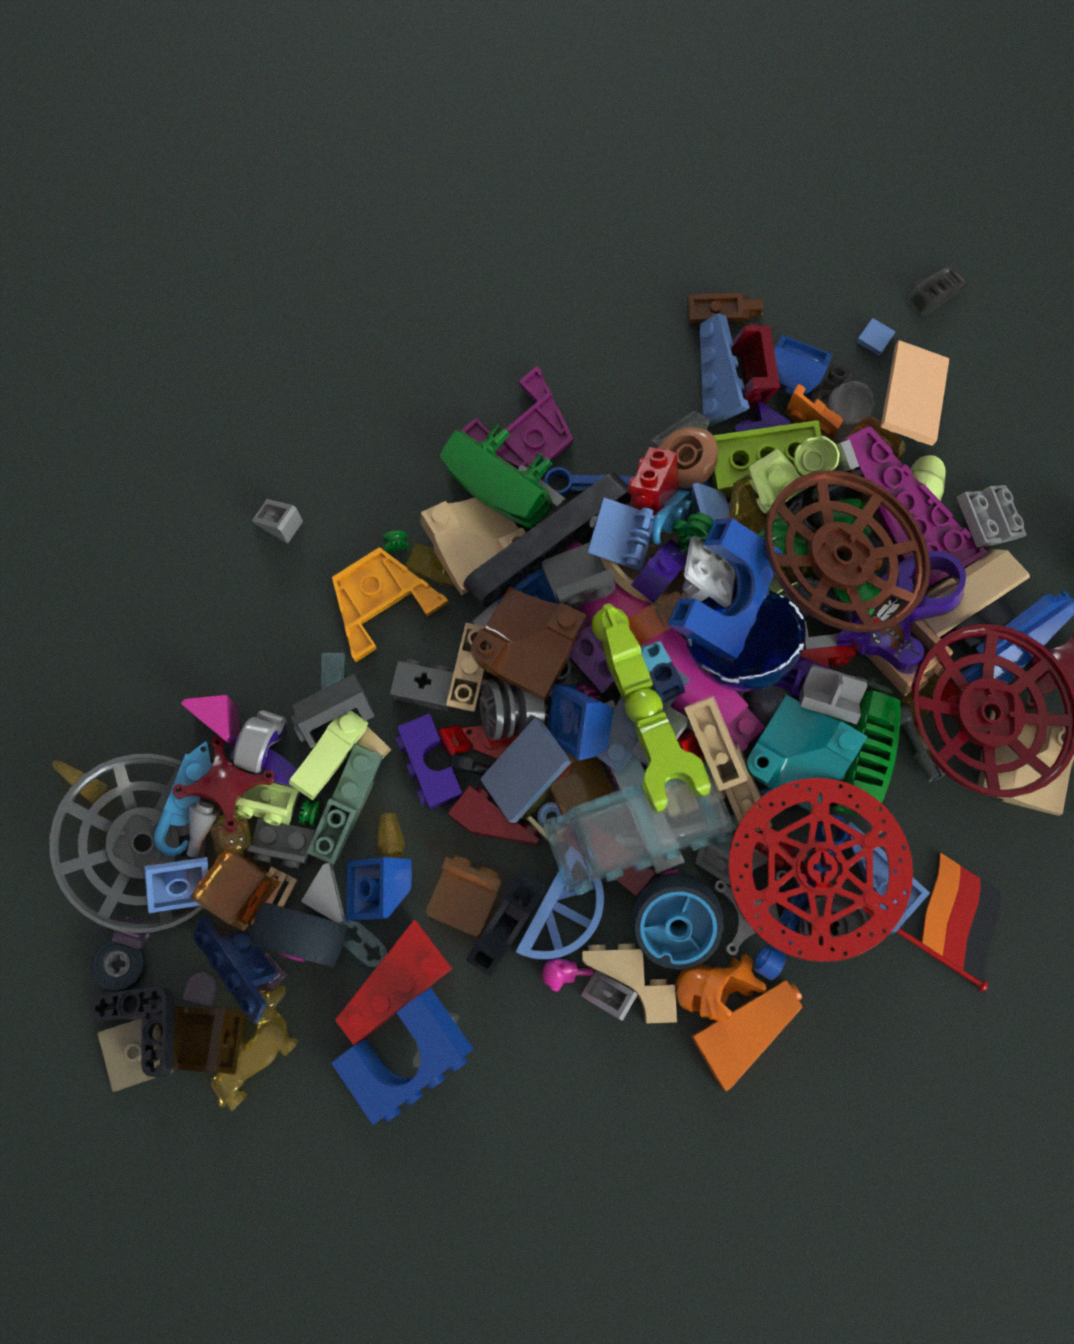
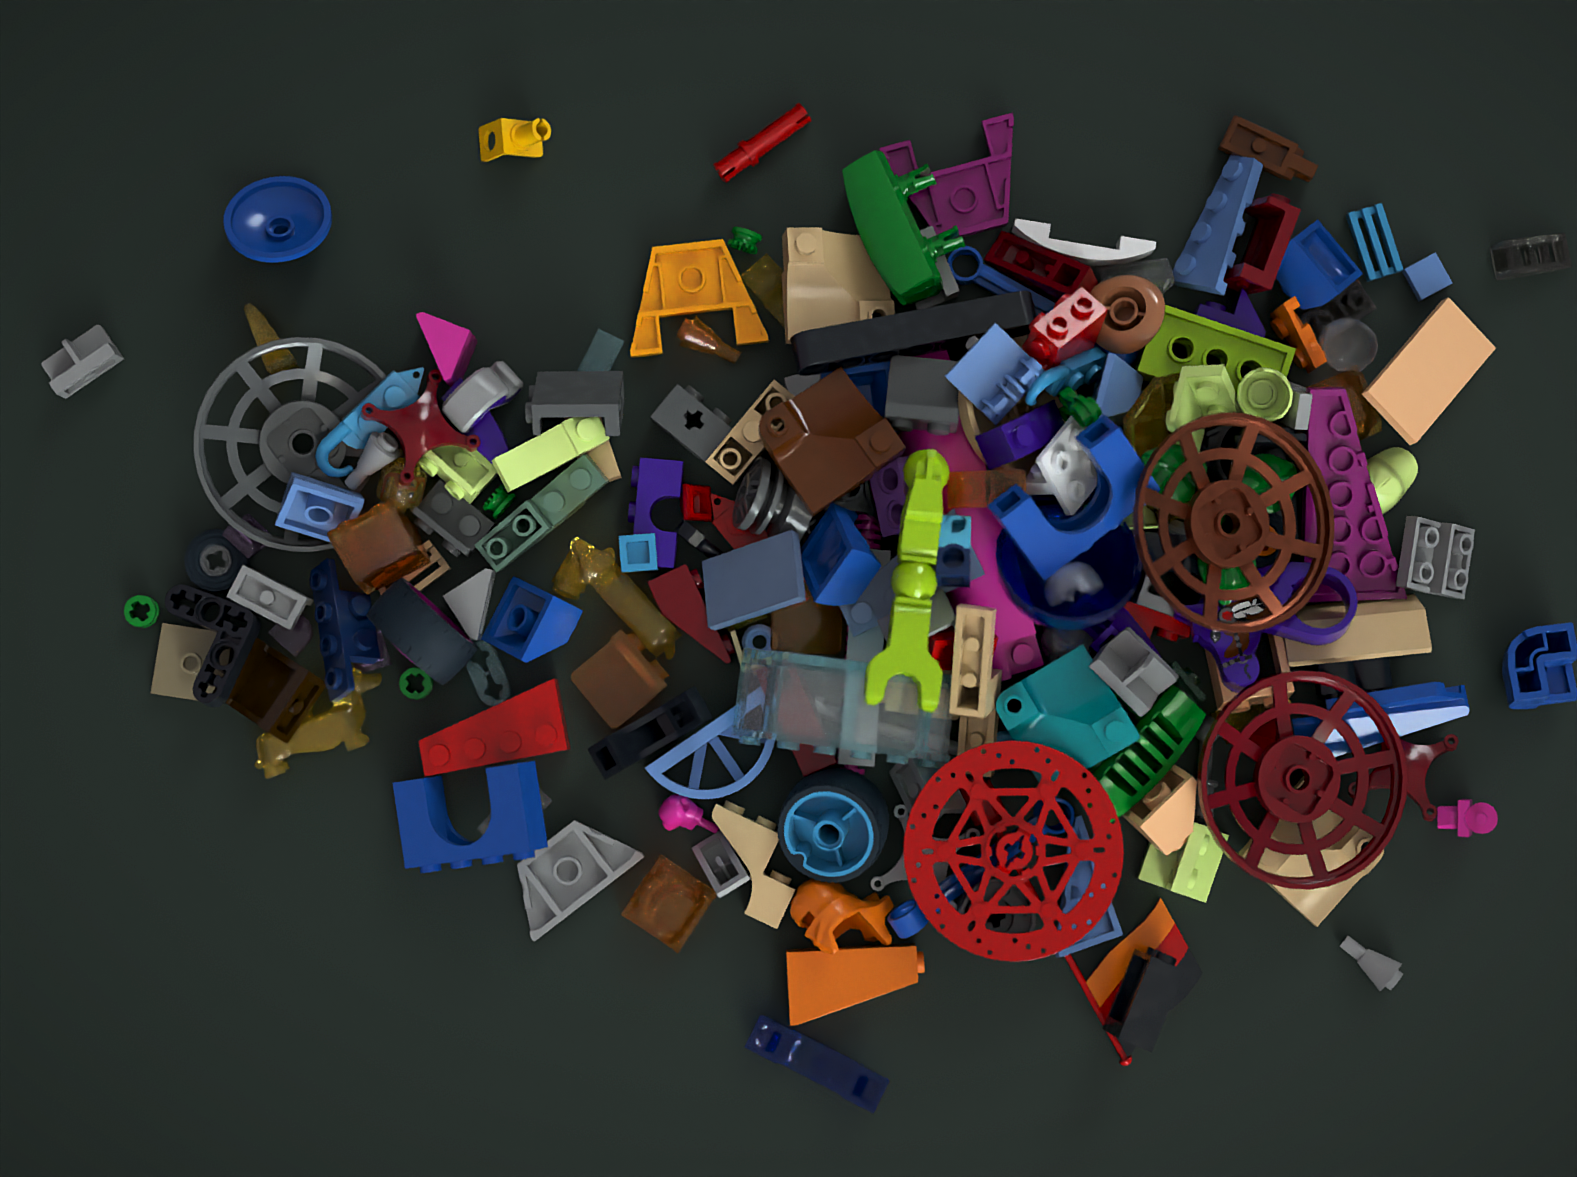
camera: 20 degrees right, 10 degrees up
(48, 690) = (277, 219): none -> blue dish
(67, 1032) = (130, 607): none -> green bush
(169, 970) = (268, 597): none -> light grey panel
(195, 551) = (514, 138): none -> yellow bracket
(278, 519) = (624, 145): light grey slope -> none
(305, 983) = (404, 684): none -> green bush
(373, 471) = (761, 143): none -> red pin
(398, 623) = (699, 337): none -> clear orange cone
(430, 794) = (638, 552): none -> dark azure plate
(436, 833) = (624, 597): none -> clear yellow animal
(499, 1063) = (570, 873): none -> light grey wing
(585, 1047) = (669, 903): none -> clear orange brick
(598, 438) = (1126, 250): none -> white slope
(608, 457) = (1039, 267): none -> dark red slope
(754, 648) = (1068, 580): none -> clear hair
(761, 1110) = (817, 1062): none -> clear blue slope
(831, 329) = (1386, 234): none -> dark azure tile
(912, 784) = (1166, 811): none -> light nougat slope
(938, 814) = (1187, 870): none -> yellowish green bracket
(974, 929) = (1144, 998): none -> black window

